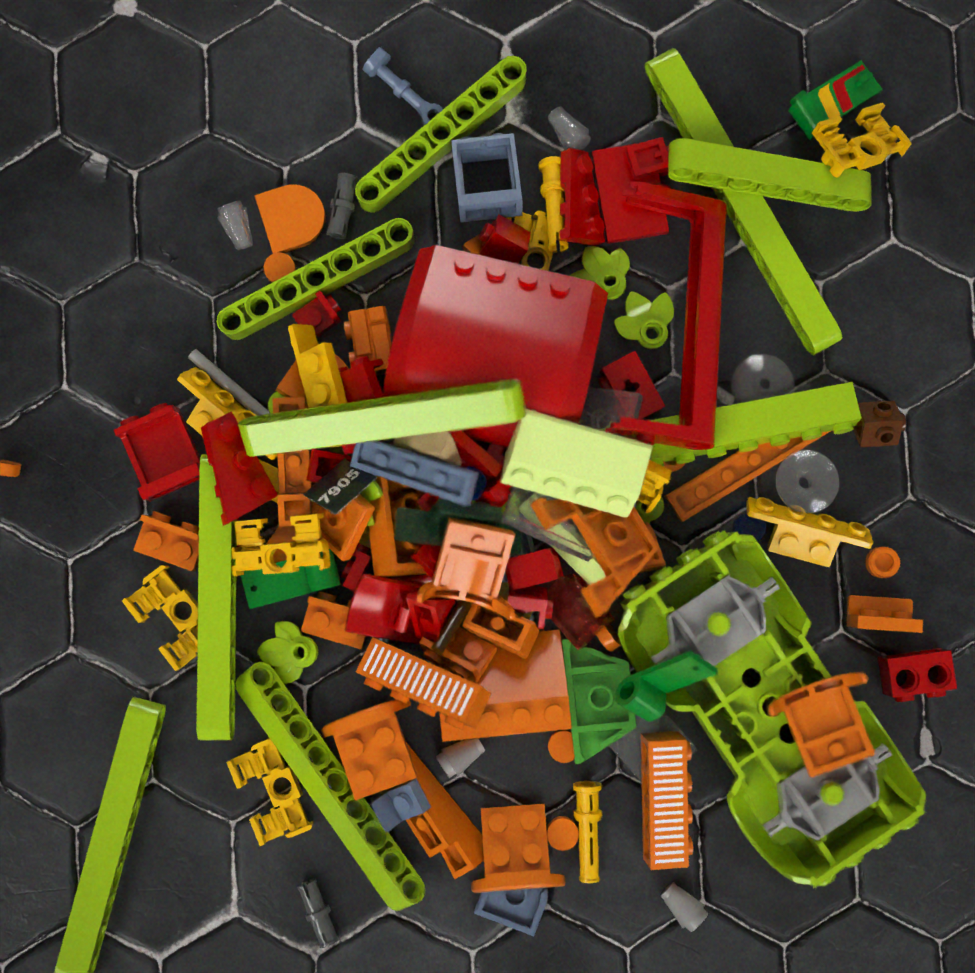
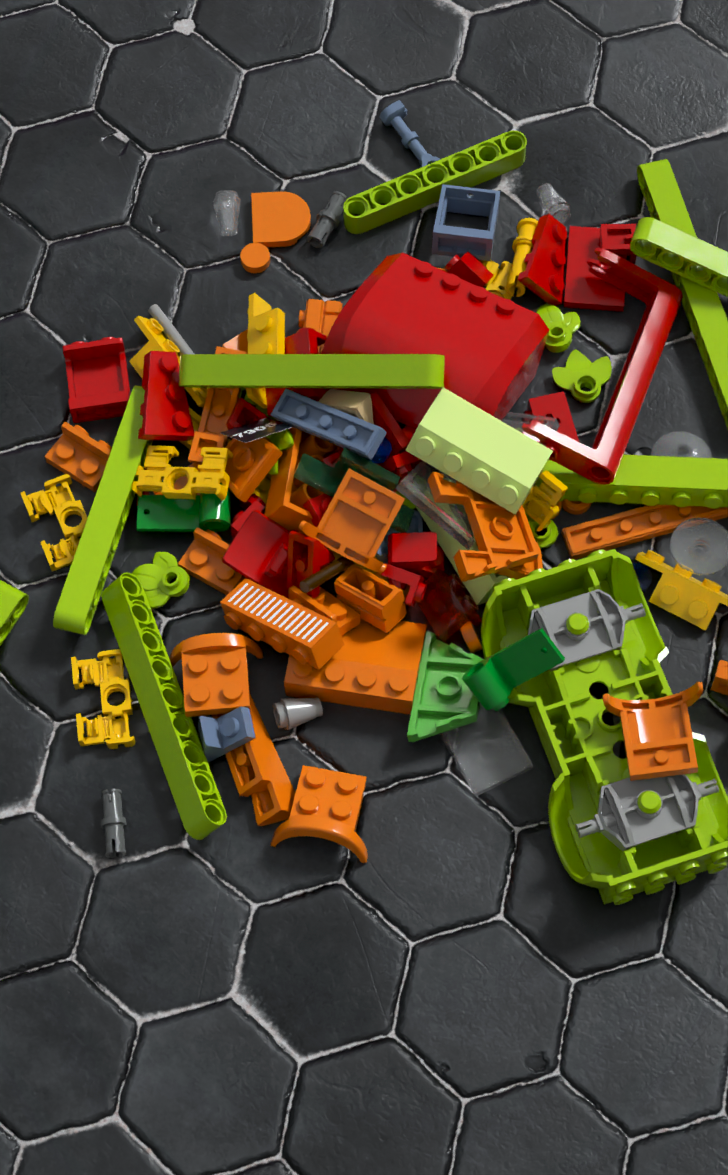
camera: 15 degrees right, 20 degrees down
(301, 278) = (276, 281): lime beam -> none
(319, 313) = (283, 298): red bracket -> none
(513, 908) = (310, 864): sand blue tile -> none
(561, 746) = (396, 730): orange tile -> none
(562, 833) = (376, 811): orange tile -> none
(588, 816) = (406, 798): yellow pin -> none
(666, 800) = (487, 794): orange brick -> none
(684, 907) = (480, 909): light grey cone -> none

